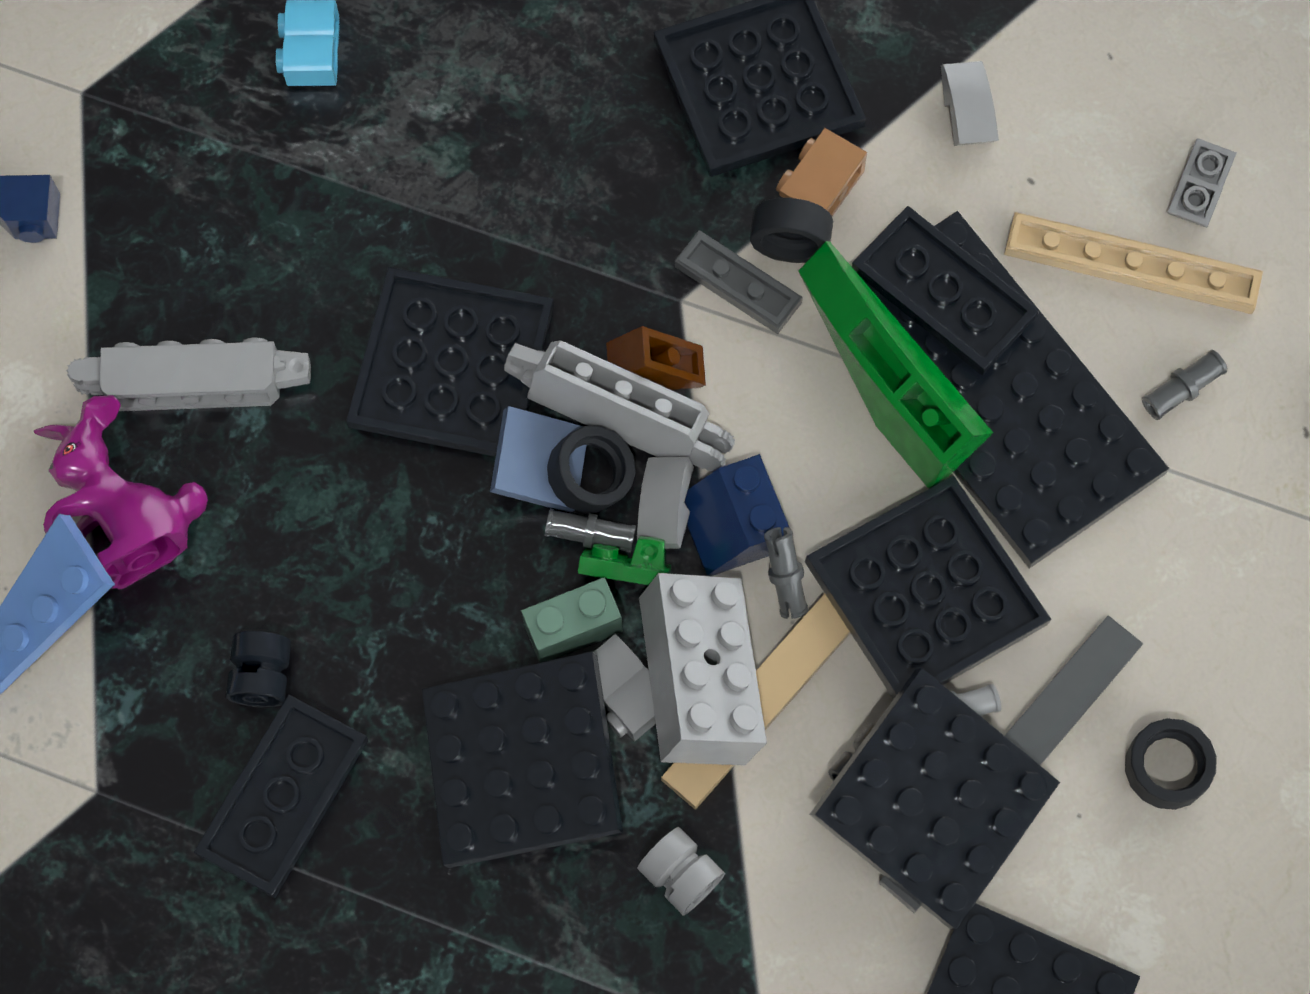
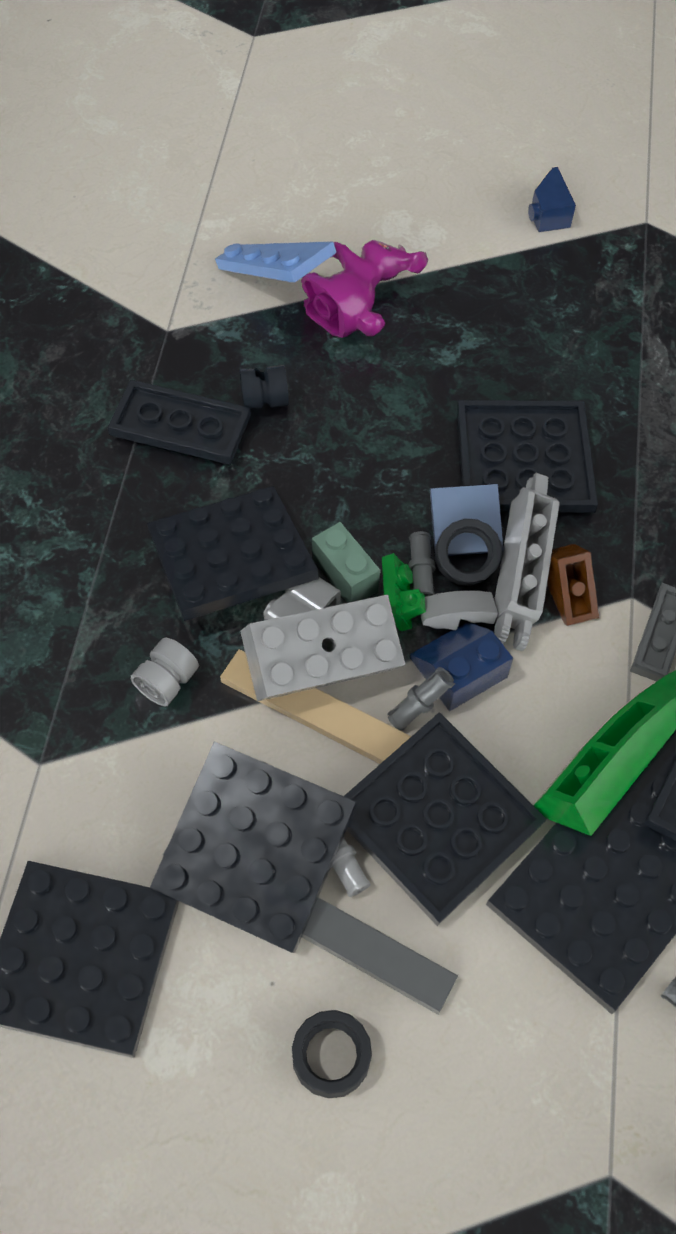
camera: 75 degrees right, 10 degrees down
(191, 374) = (465, 313): light grey hinge -> none

